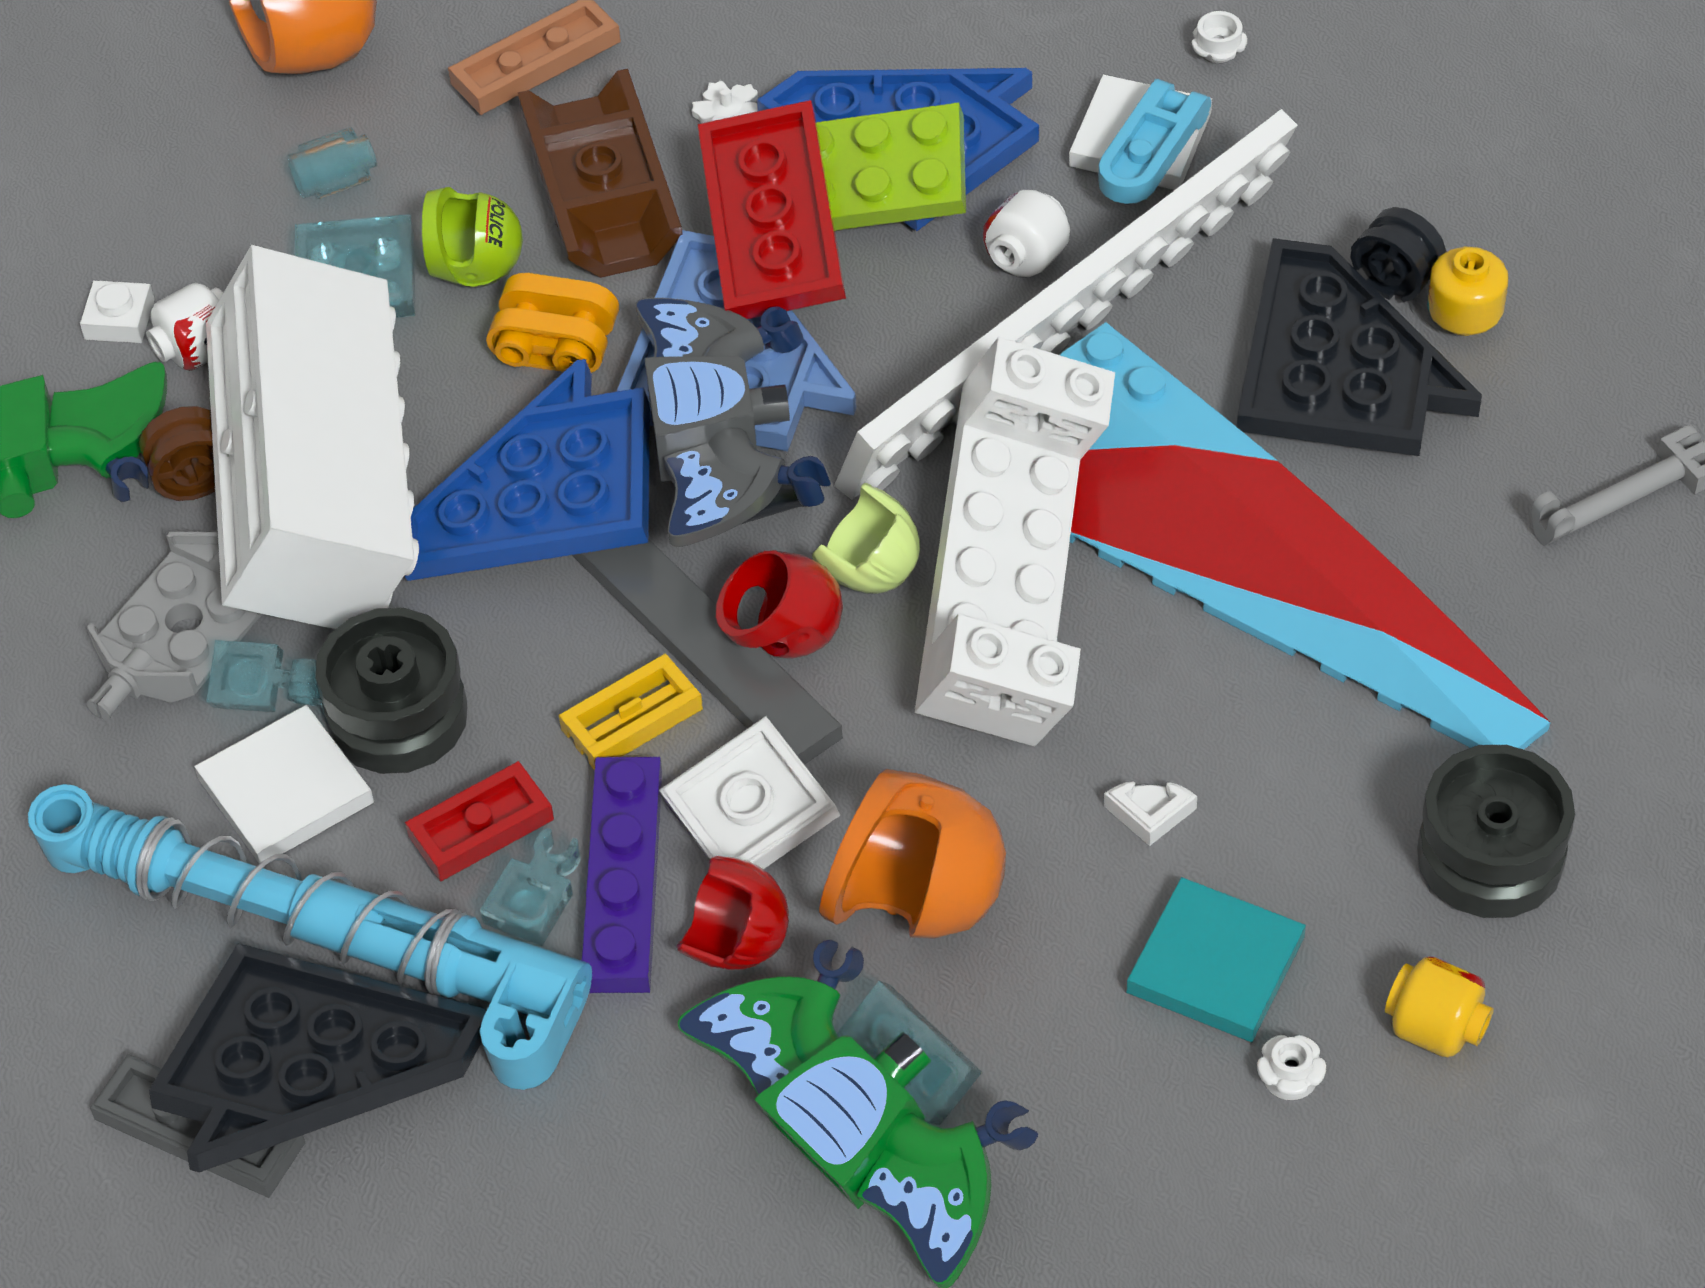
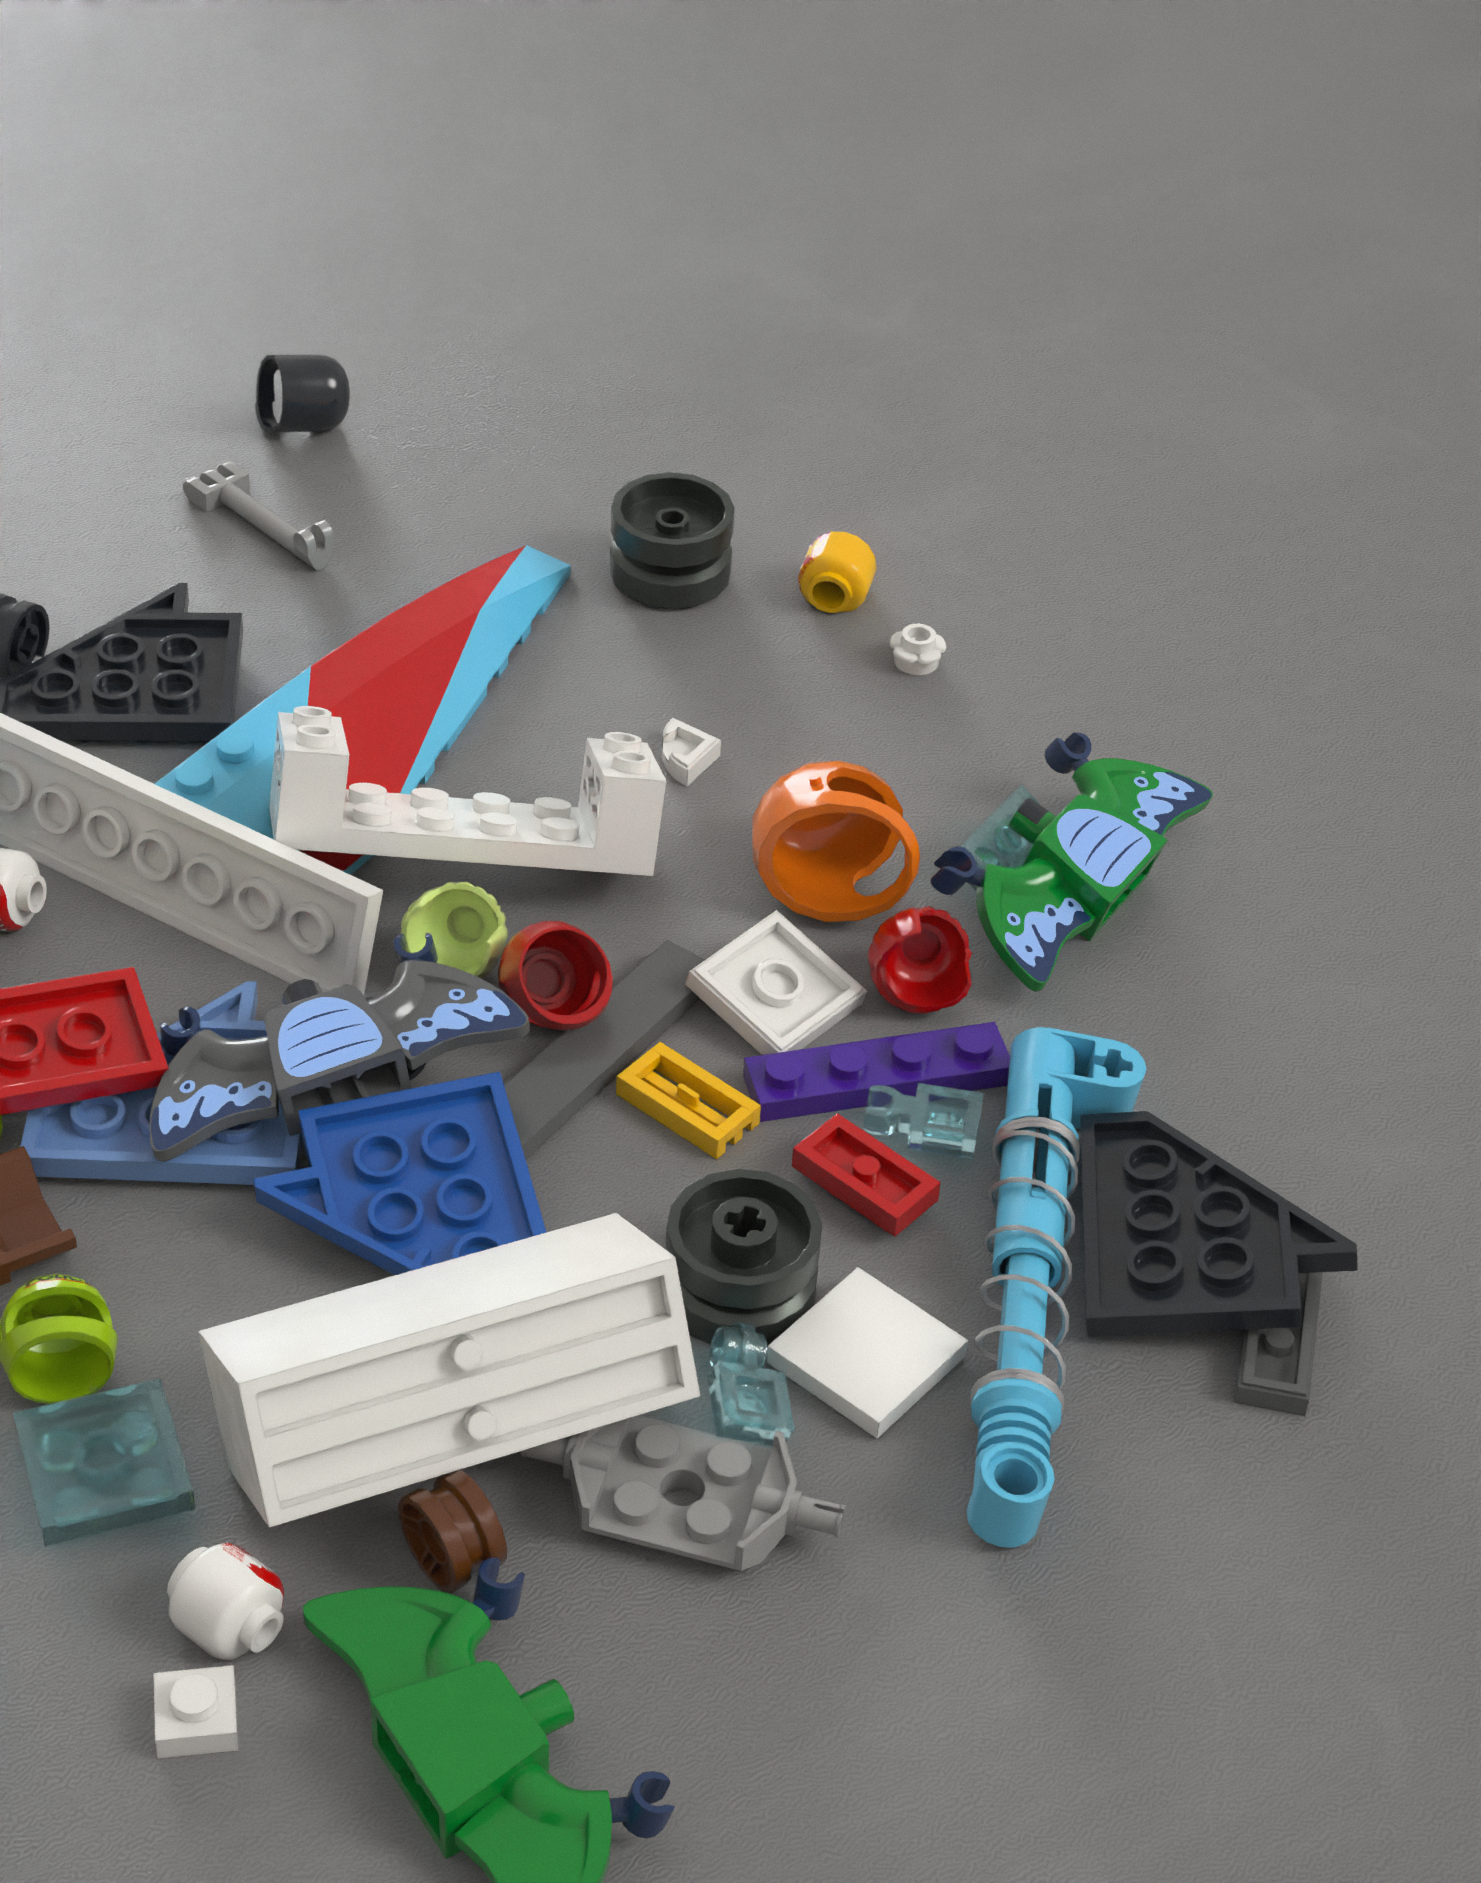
camera: 110 degrees left, 10 degrees down
(552, 322) = (203, 1271): light orange brick -> none
(1216, 959) = (829, 698): teal tile -> none
(1467, 290) = (58, 586): yellow head -> none

